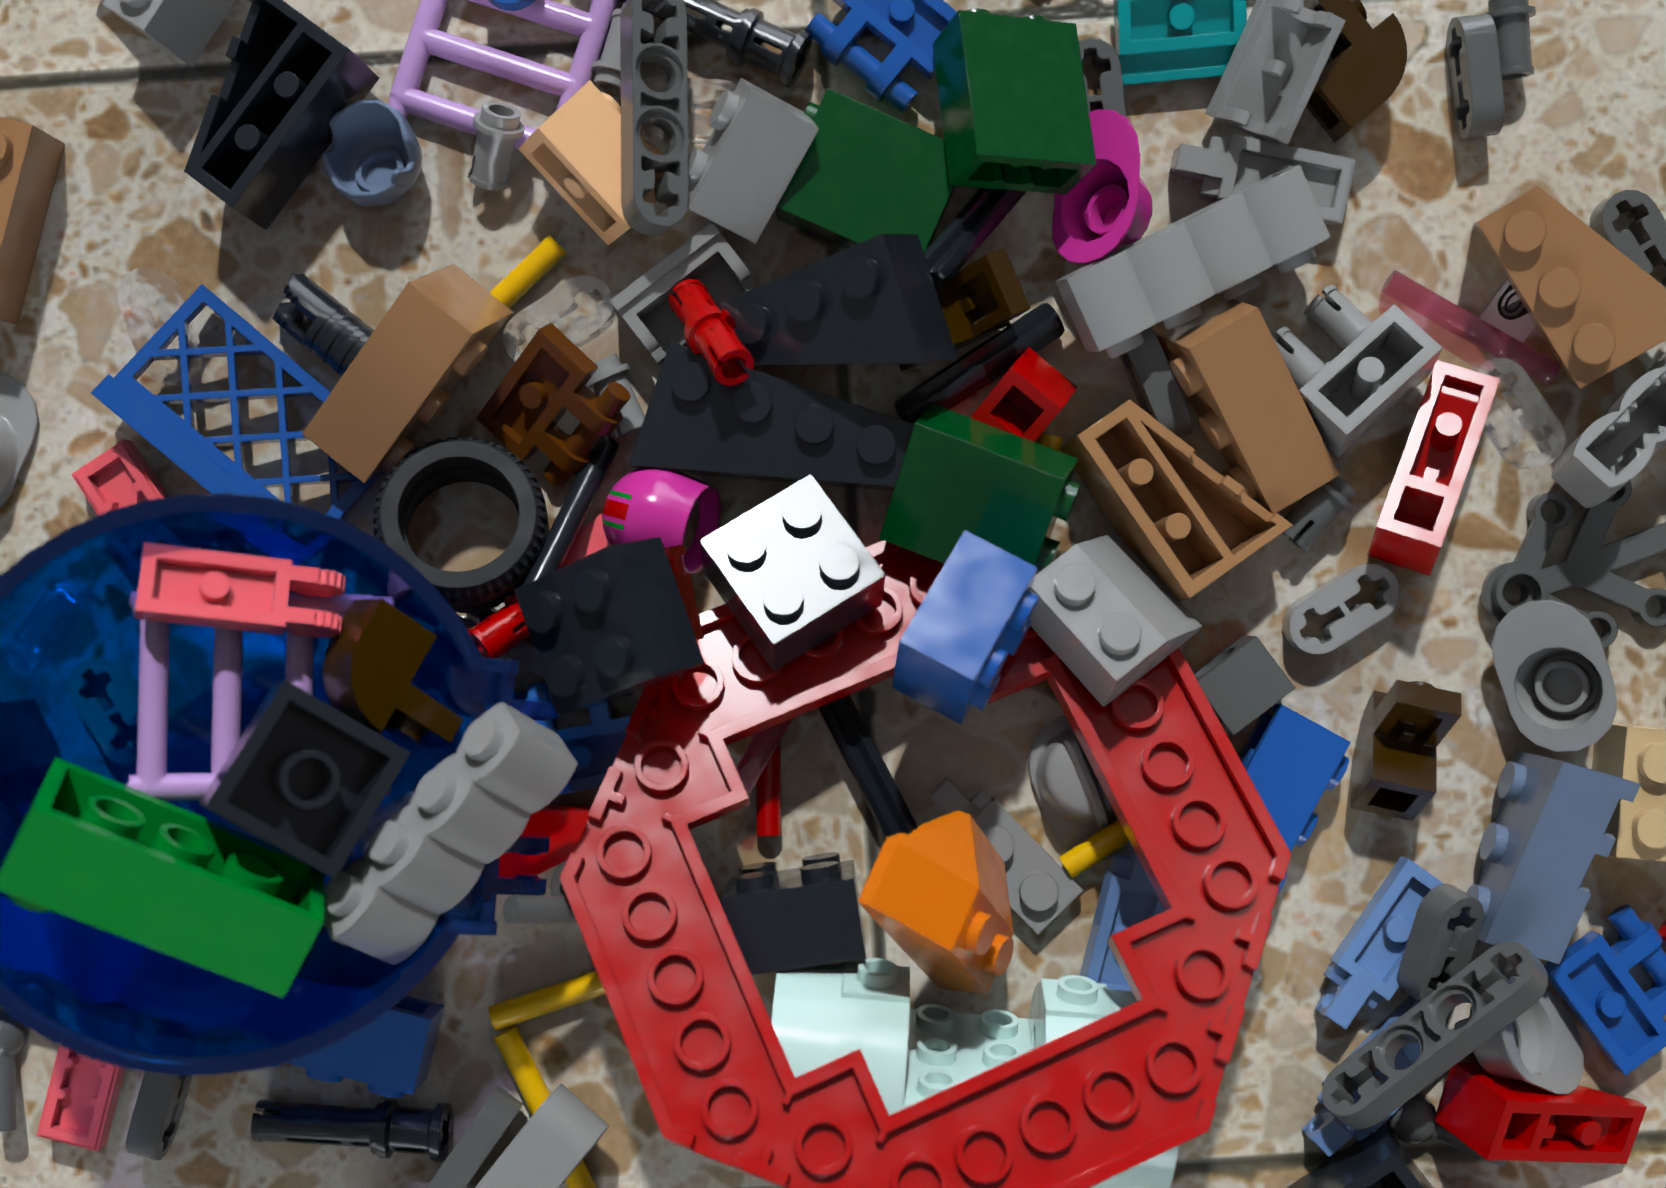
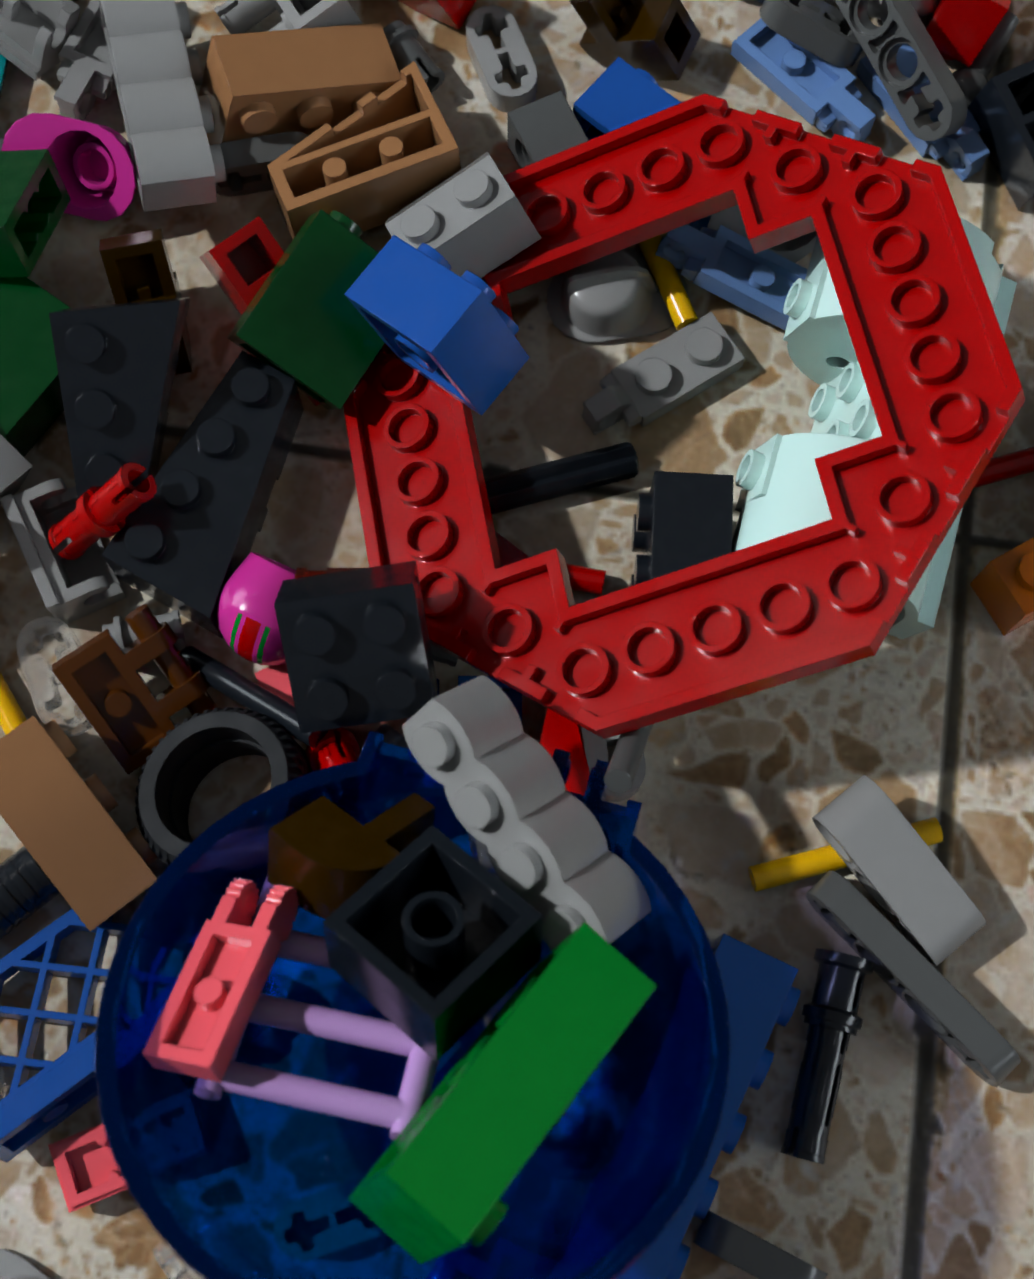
camera: 80 degrees left, 15 degrees down
(545, 1000) = (723, 798): yellow bar -> none
(792, 572) = (351, 482): brick -> none
(944, 902) = (702, 388): orange wedge -> none
(968, 232) = (74, 274): black axle -> none
(982, 363) = (206, 300): black axle -> none

